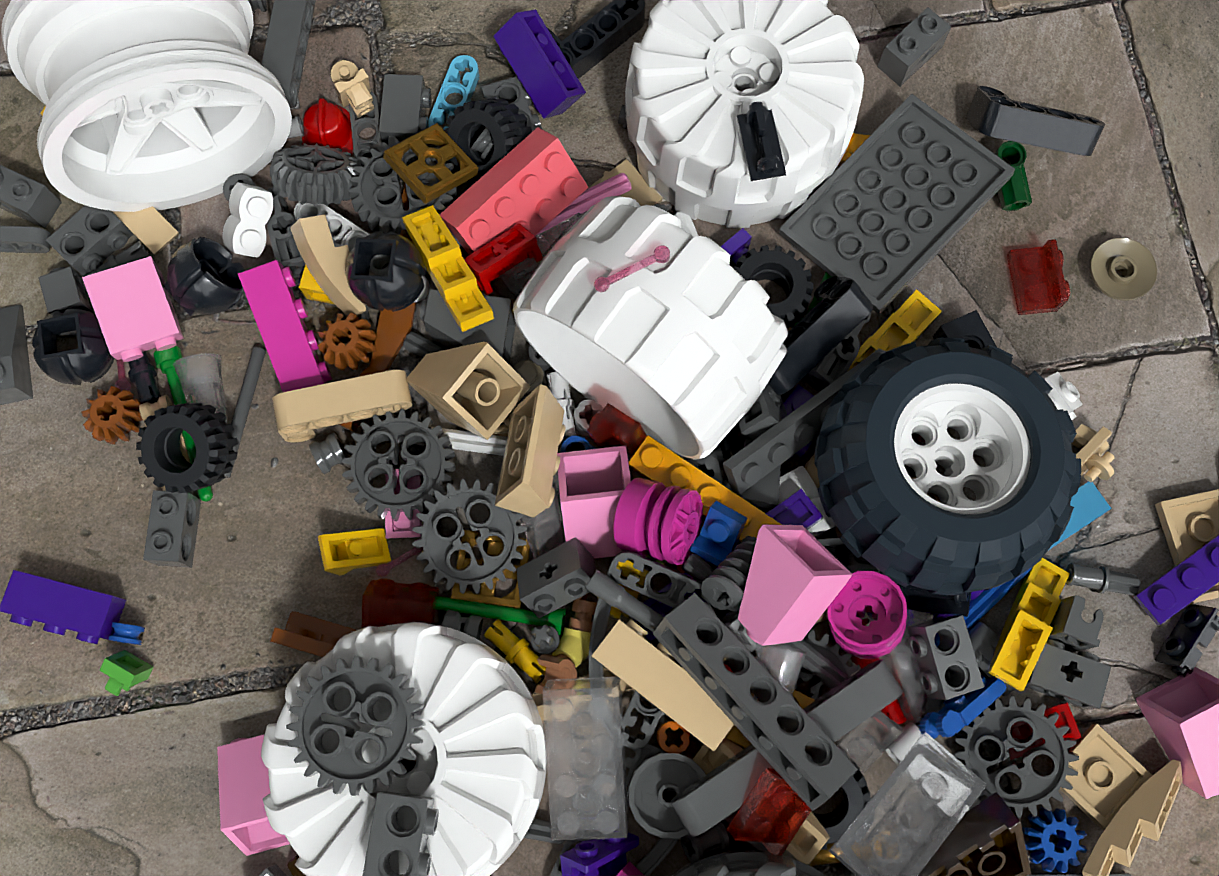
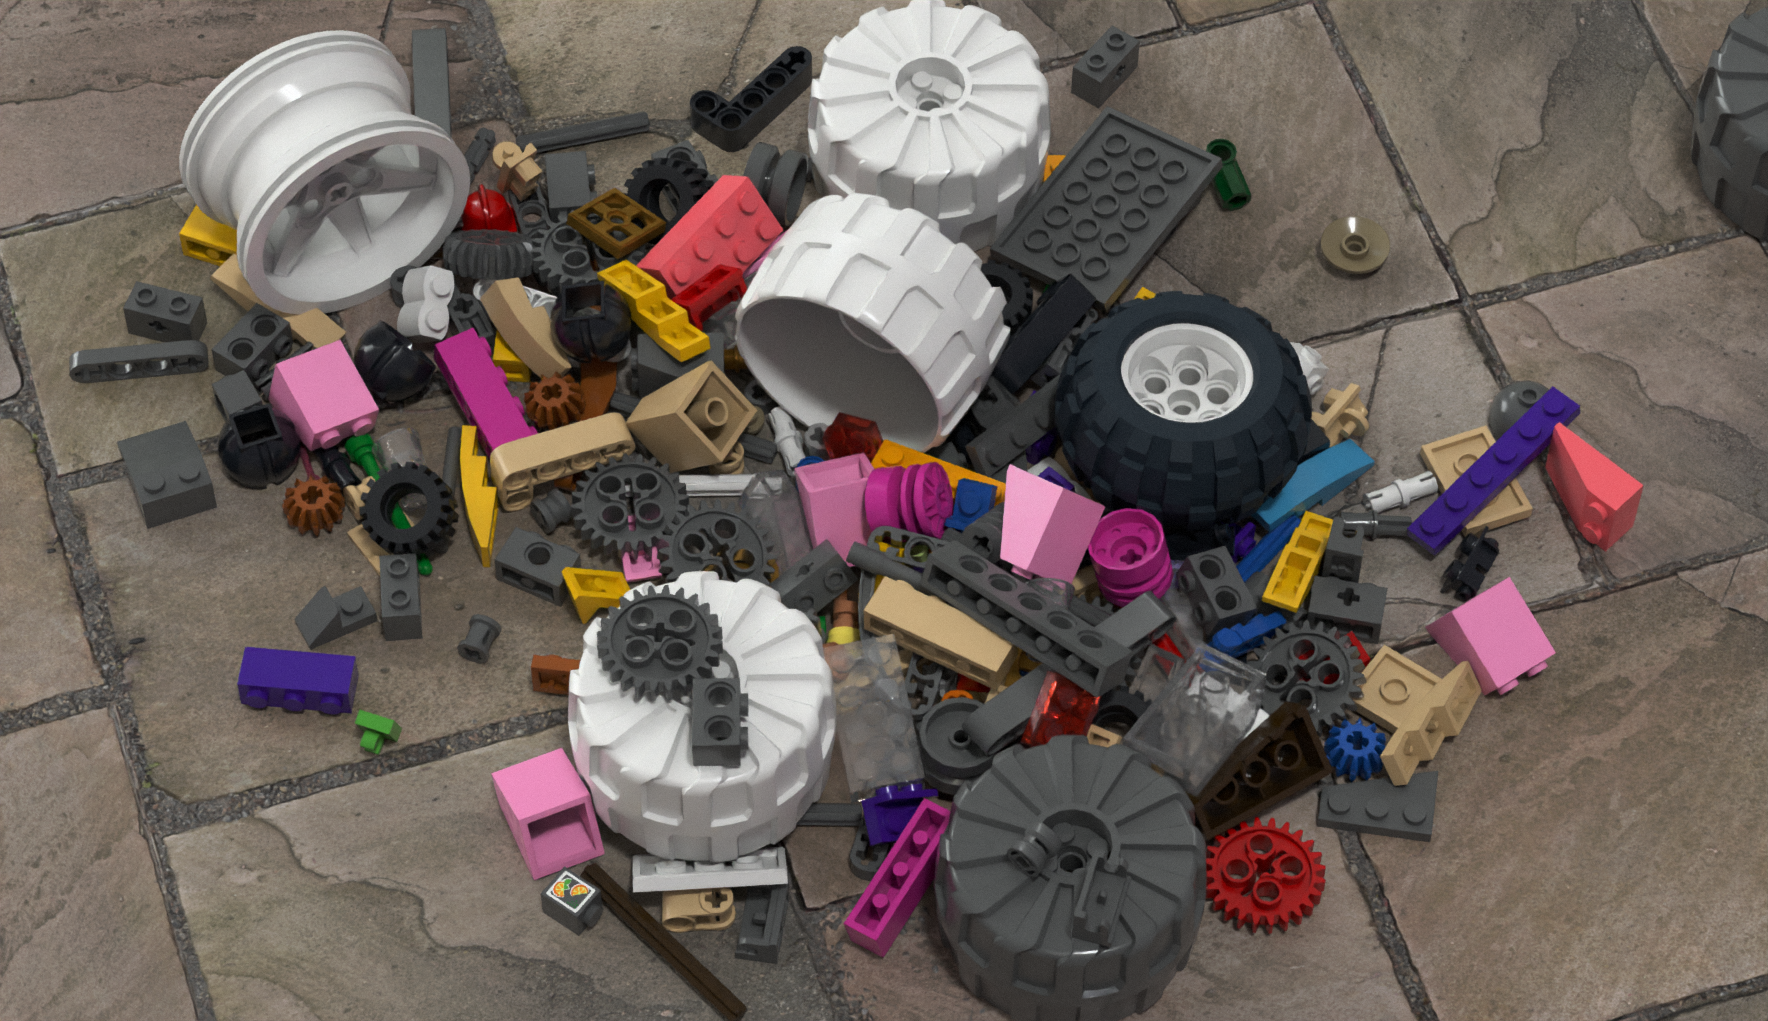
camera: 10 degrees left, 20 degrees down
(110, 537) = (332, 618): none -> dark grey slope
(126, 633) = (370, 697): blue bush -> none
(238, 583) = (479, 638): none -> dark grey bush
(262, 436) = (479, 499): none -> yellow slope
(291, 497) = (517, 565): none -> dark grey brick
(323, 66) = (478, 151): none -> dark grey axle
(426, 52) = (585, 132): none -> dark grey axle
(452, 85) = (616, 161): medium azure beam -> none
(484, 144) = (667, 203): dark grey bush -> none
(531, 454) = (770, 461): tan slope -> none
(539, 63) = (709, 123): dark purple brick -> none
(590, 132) = (778, 179): none -> dark grey wheel
(660, 255) = (875, 225): clear pink hinge -> none
(761, 143) = (954, 146): black hinge -> none
(1032, 124) = (1241, 121): beam -> none
(1038, 278) = (1269, 266): clear red bracket -> none
(1131, 547) = (1400, 492): none -> white pin

